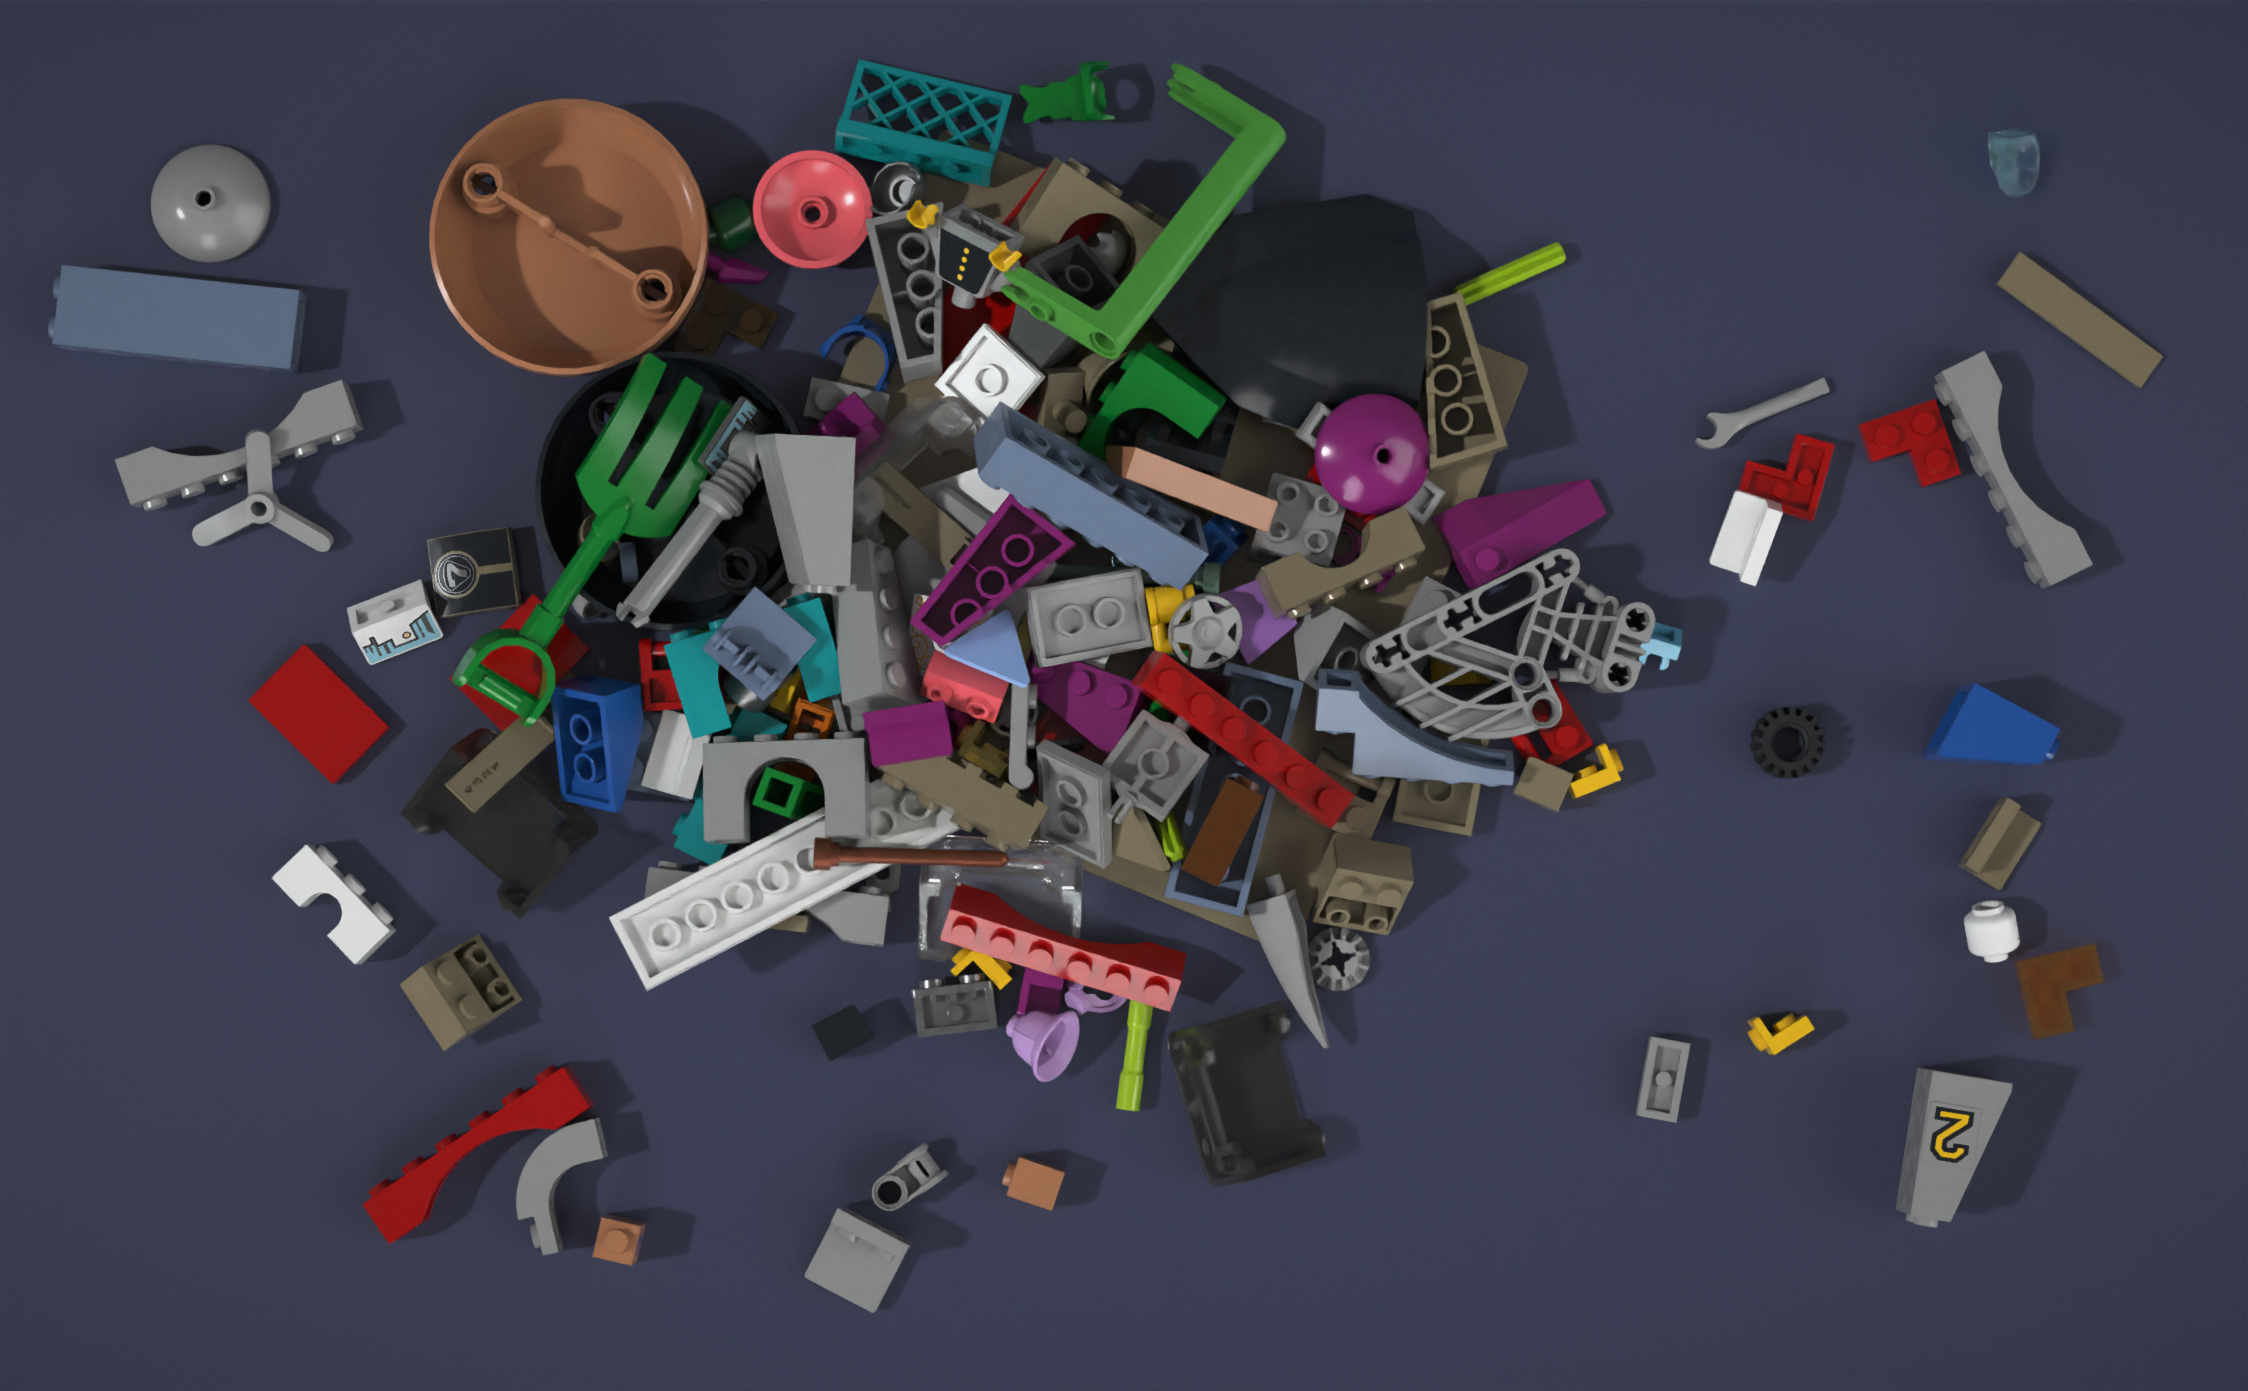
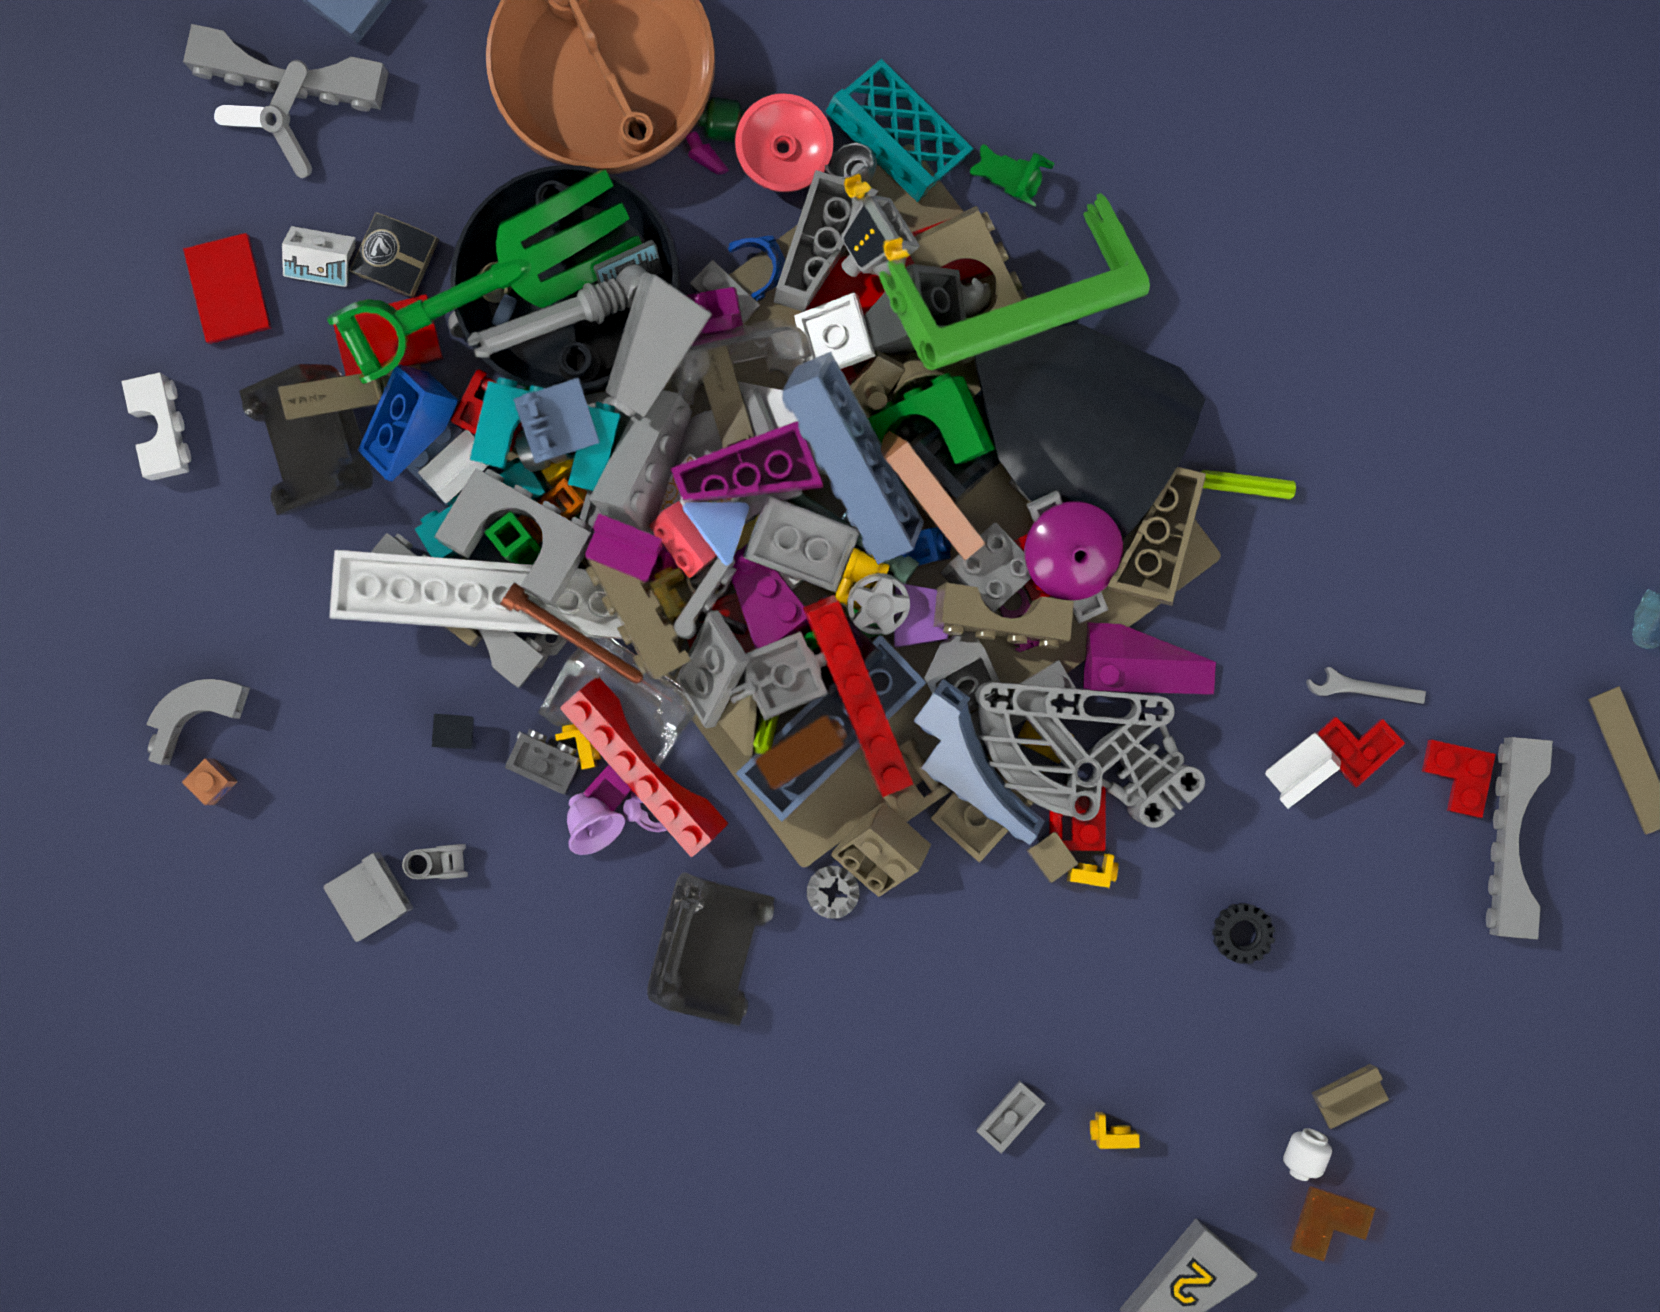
camera: 30 degrees right, 0 degrees up
(409, 1200) = (83, 664): red arch -> none
(460, 992) = (205, 541): dark tan slope -> none
(722, 312) = (676, 177): dark brown plate -> none
(1033, 1182) = (523, 918): nougat brick -> none
(1132, 1074) = (638, 886): lime piece -> none
(1284, 939) = (803, 854): light grey piece -> none
(1664, 642) = (1199, 810): medium azure tile -> none
(1991, 731) = (1394, 1013): blue slope -> none

